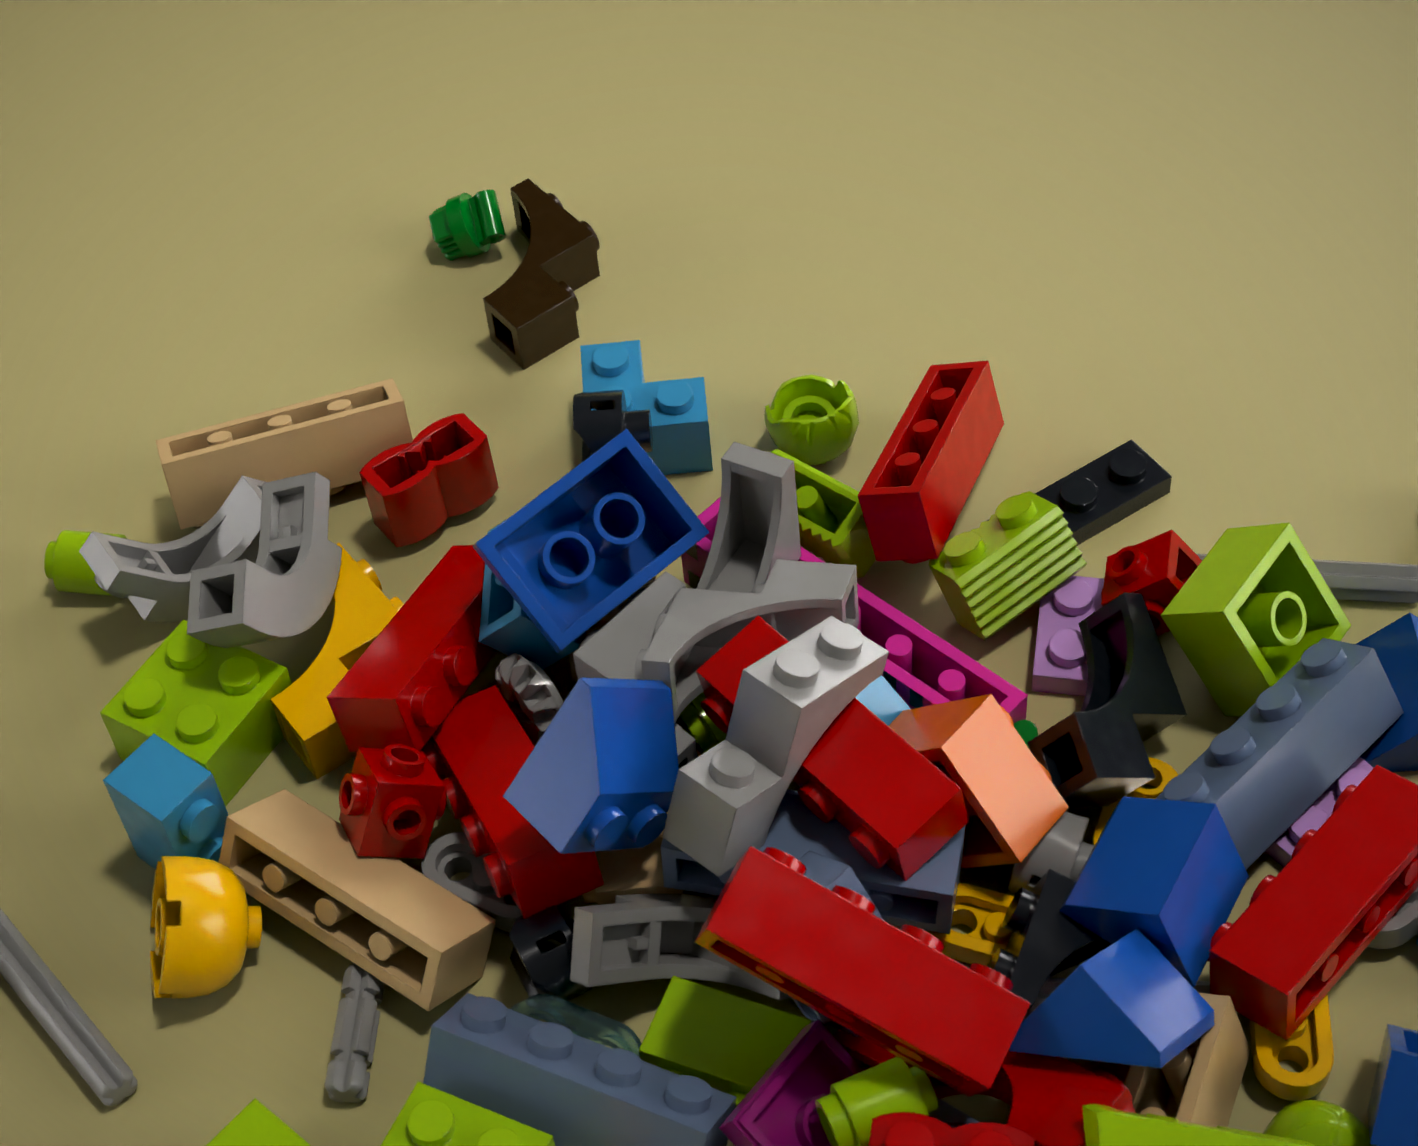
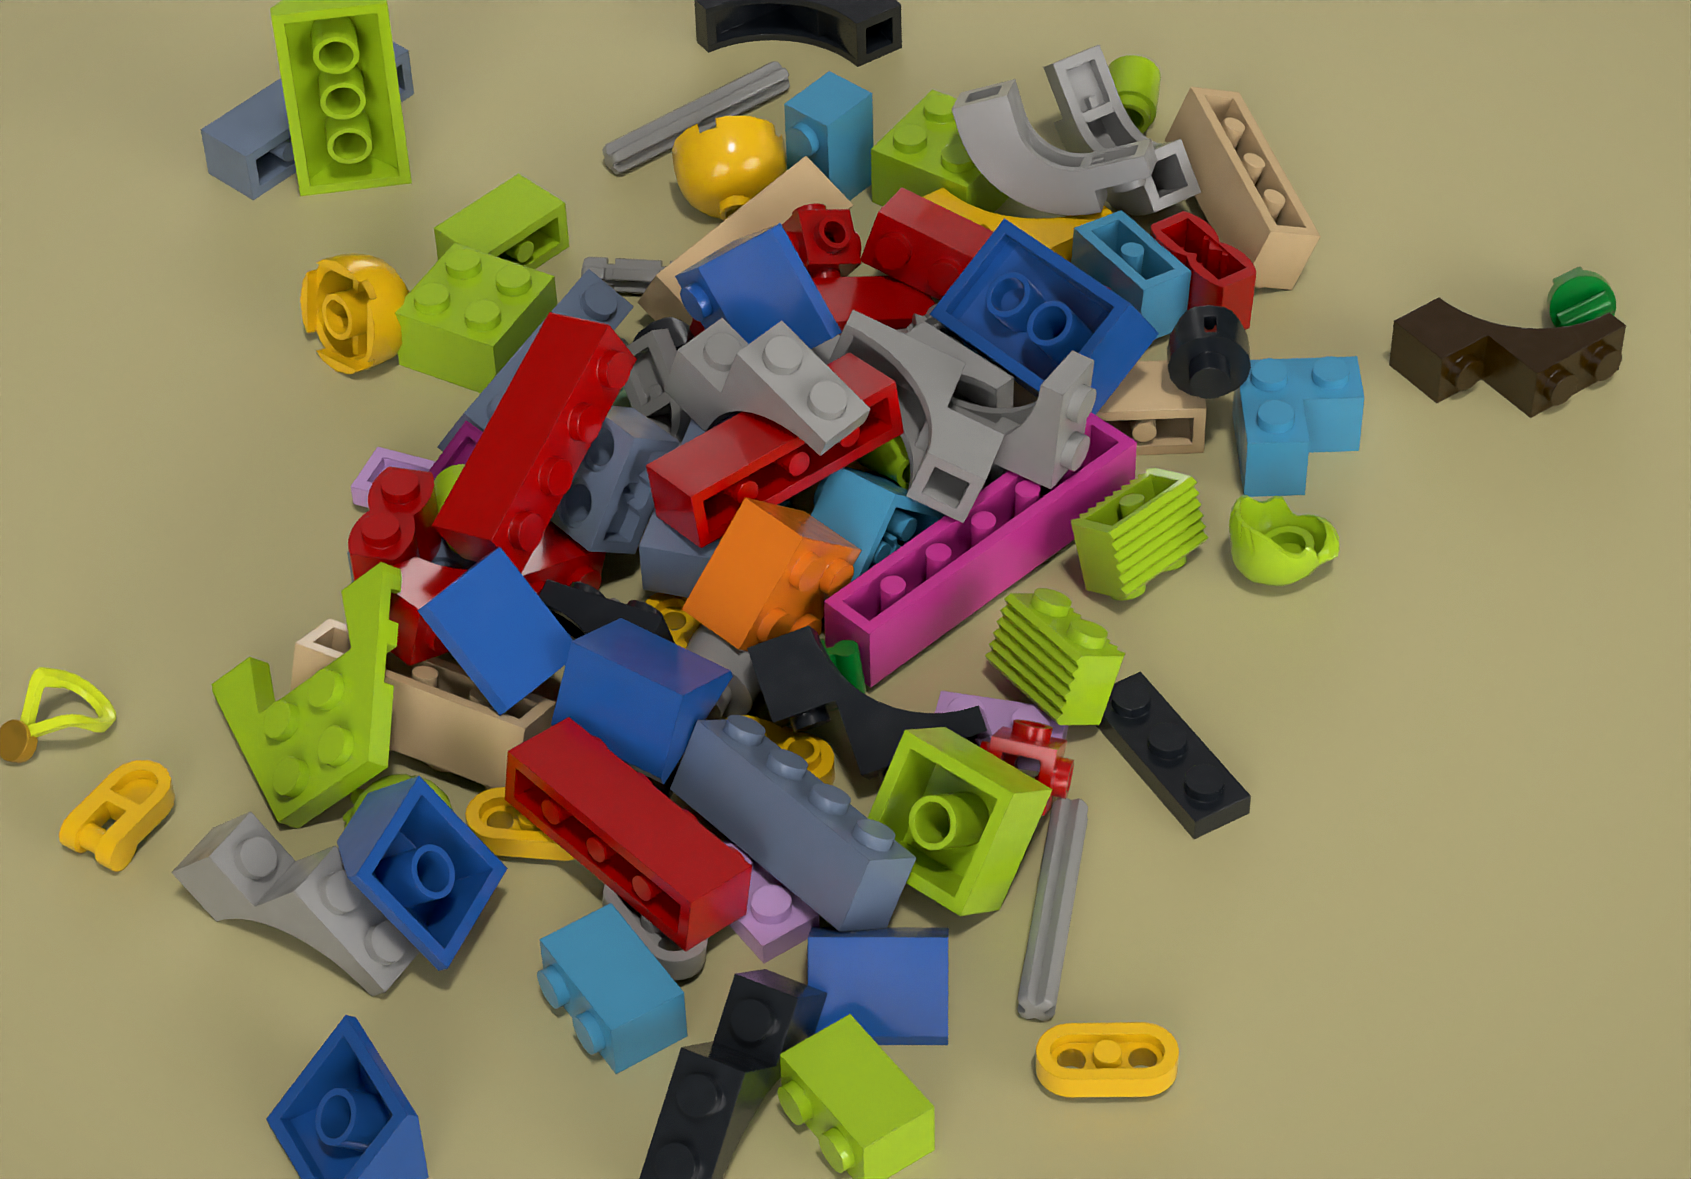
camera: 90 degrees right, 5 degrees down
(420, 526) = (1134, 267): none -> dark azure brick
(931, 462) = (1186, 601): red brick -> none

